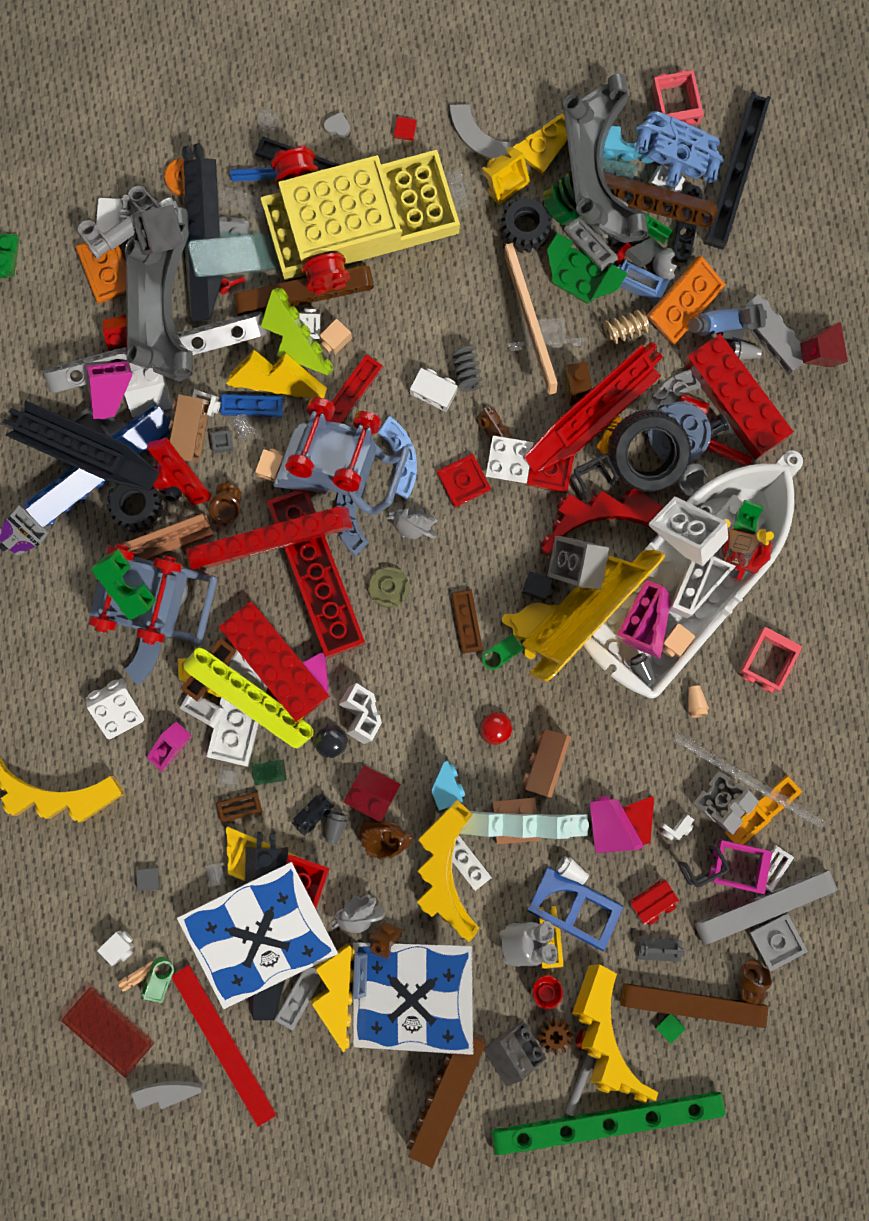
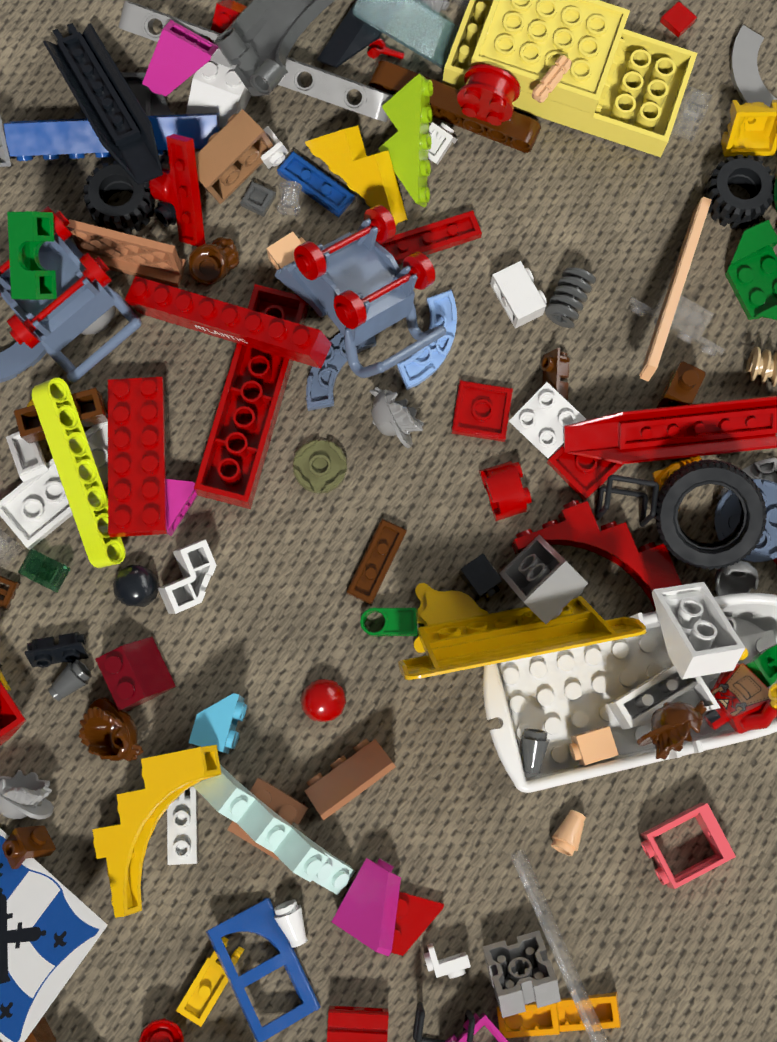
camera: 35 degrees right, 5 degrees down
(335, 337) = (452, 172): light nougat brick -> none
(361, 238) = (551, 78): none -> light nougat axle
(513, 520) = (505, 490): none -> red cylinder
(528, 944) = (177, 971): light grey piece -> none
(647, 620) = (576, 697): dark pink wedge -> none
(715, 597) = (672, 726): none -> reddish brown hair

